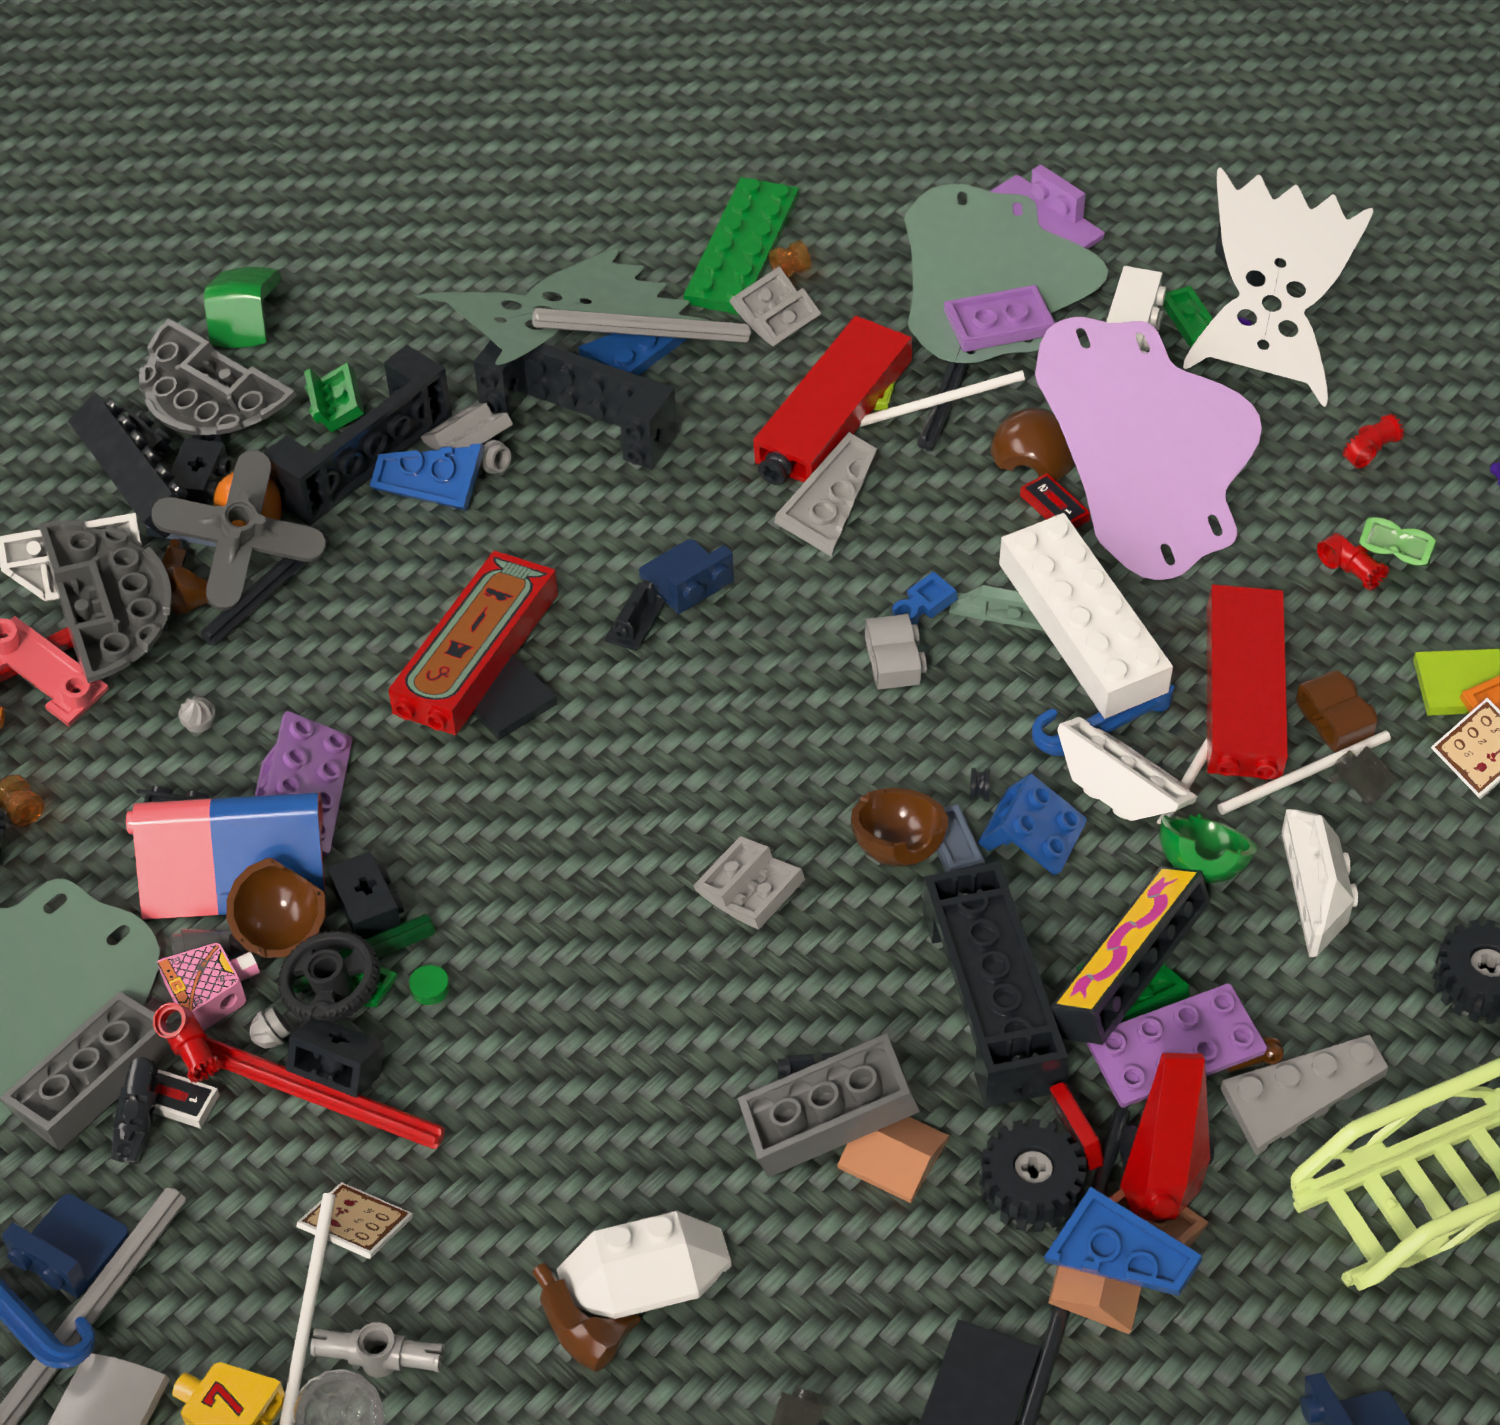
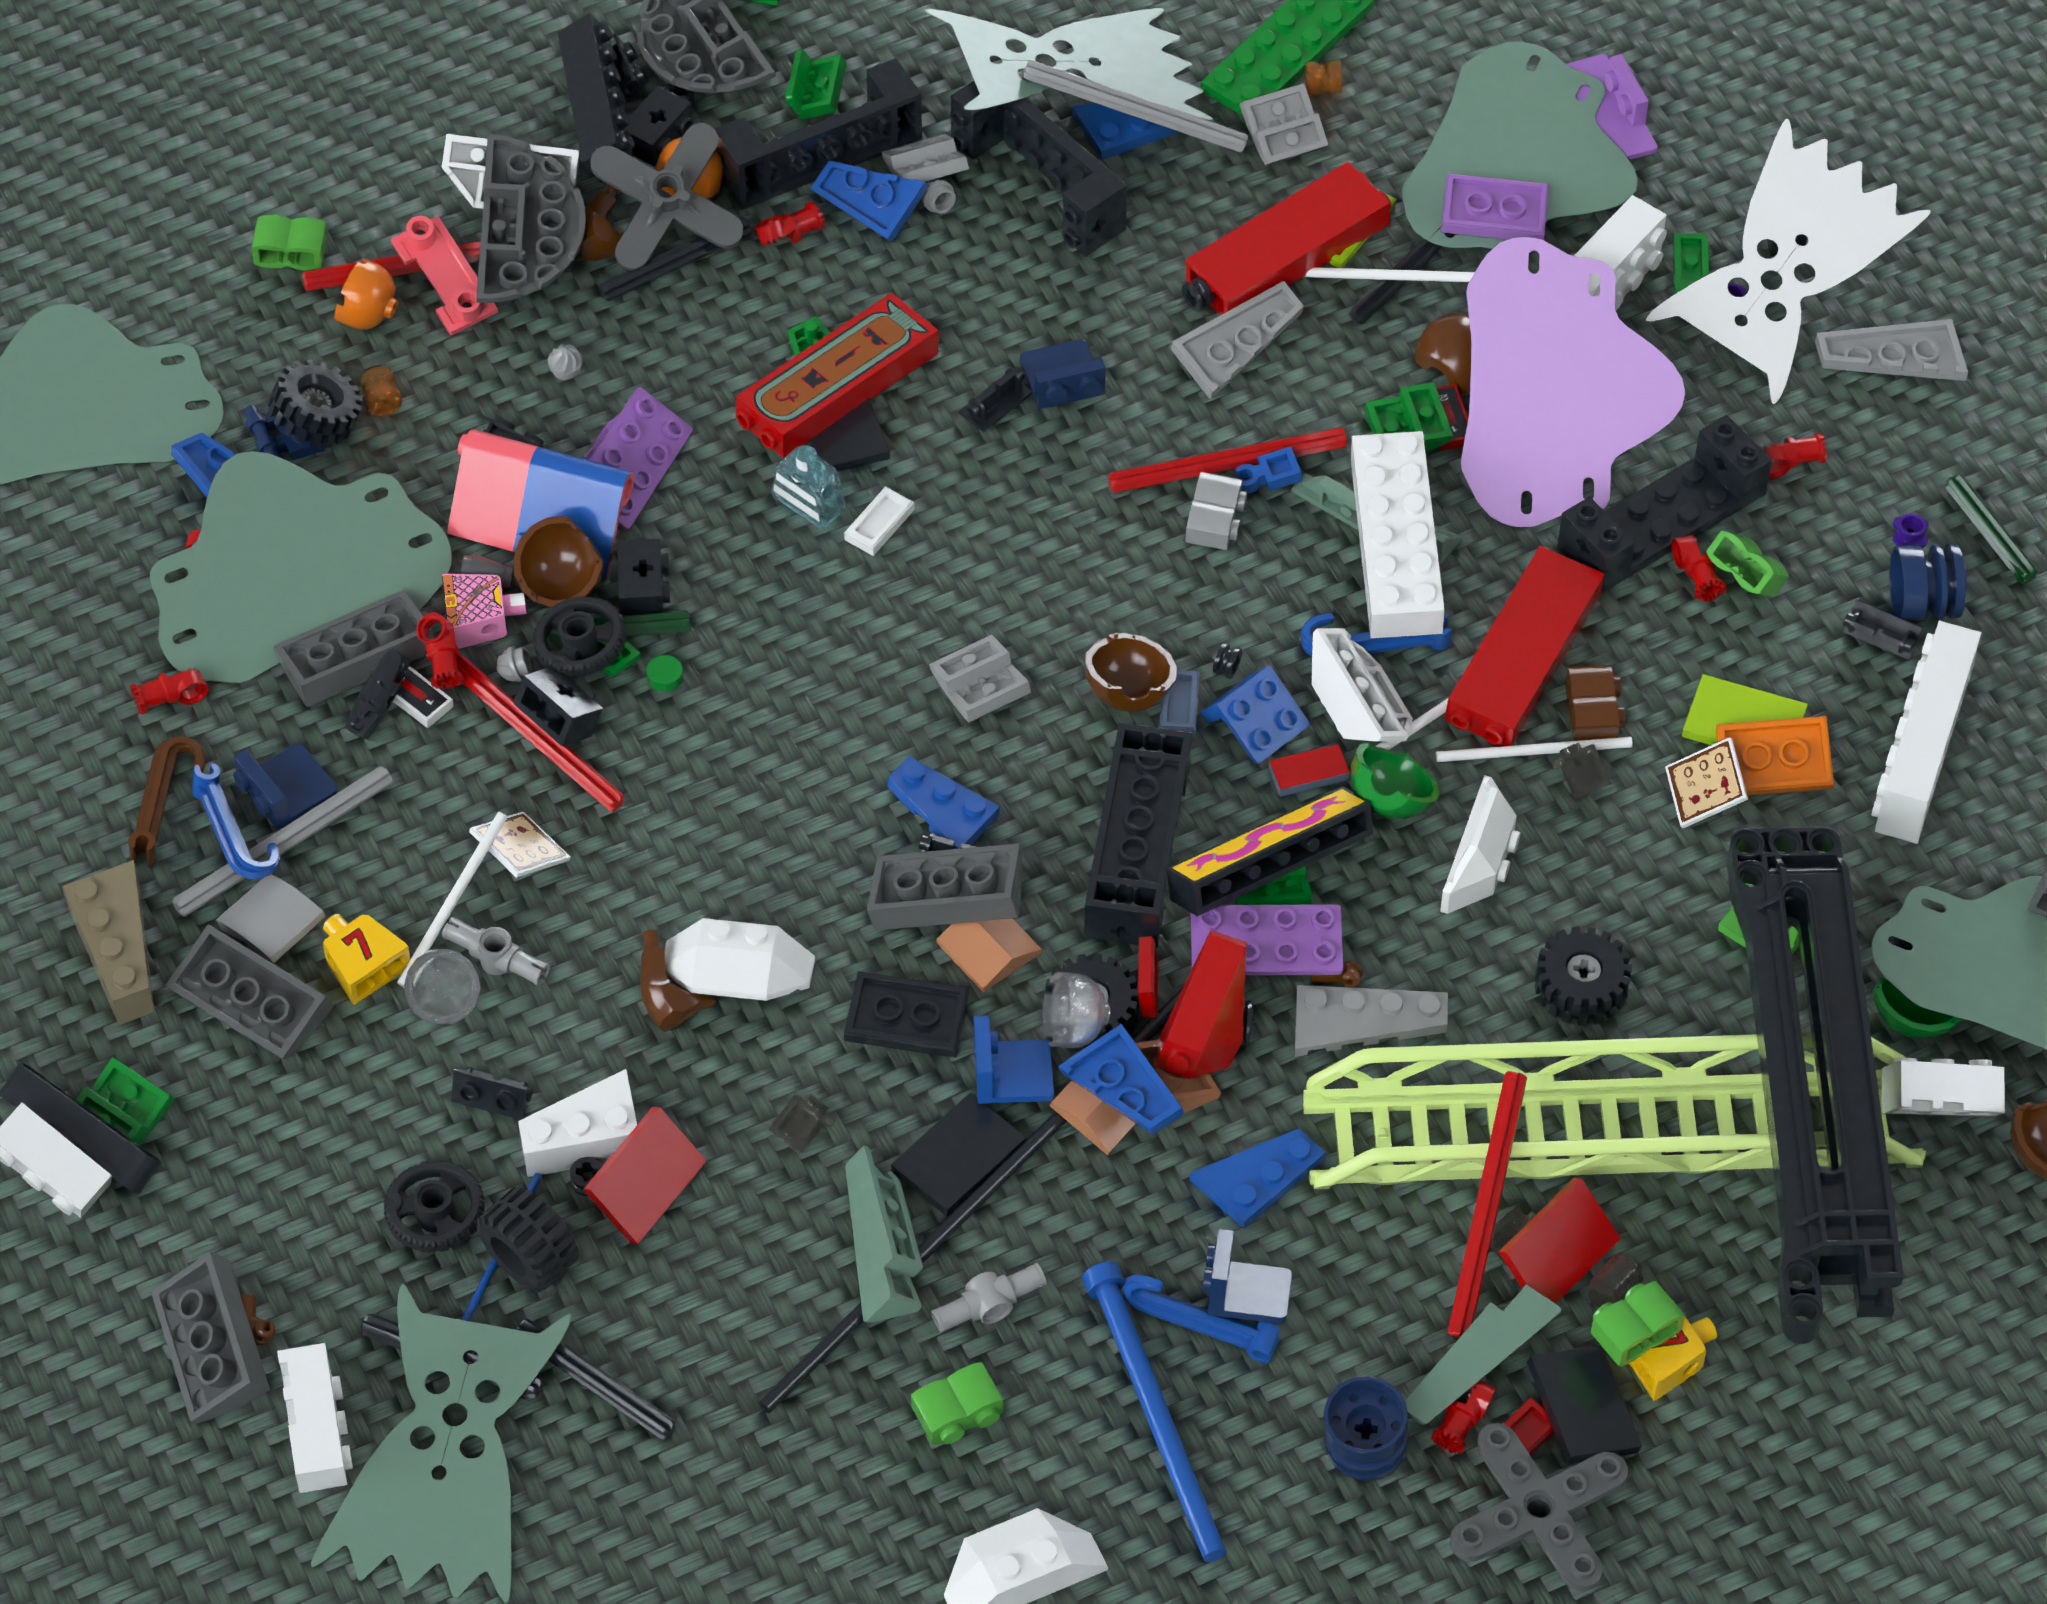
camera: 20 degrees right, 5 degrees up
(366, 523) = (792, 226): none -> red connector
(426, 616) = (806, 334): none -> green piece
(496, 752) = (809, 486): none -> clear light blue torso
(576, 765) = (879, 521): none -> white tile
(782, 1020) = (943, 803): none -> blue wing
(846, 1257) = (906, 1014): none -> black tile
(872, 605) = (1223, 460): none -> red axle
(987, 1276) = (1011, 1068): none -> blue bracket
(1022, 507) = (1413, 411): none -> green slope
(1034, 1191) = (1074, 1010): none -> clear cylinder
(1111, 863) = (1309, 770): none -> red tile
(1294, 1298) = (1258, 1176): none -> blue wing
(1302, 512) = (1671, 507): none -> black plate
(1404, 329) = (1902, 349): none -> light grey wing

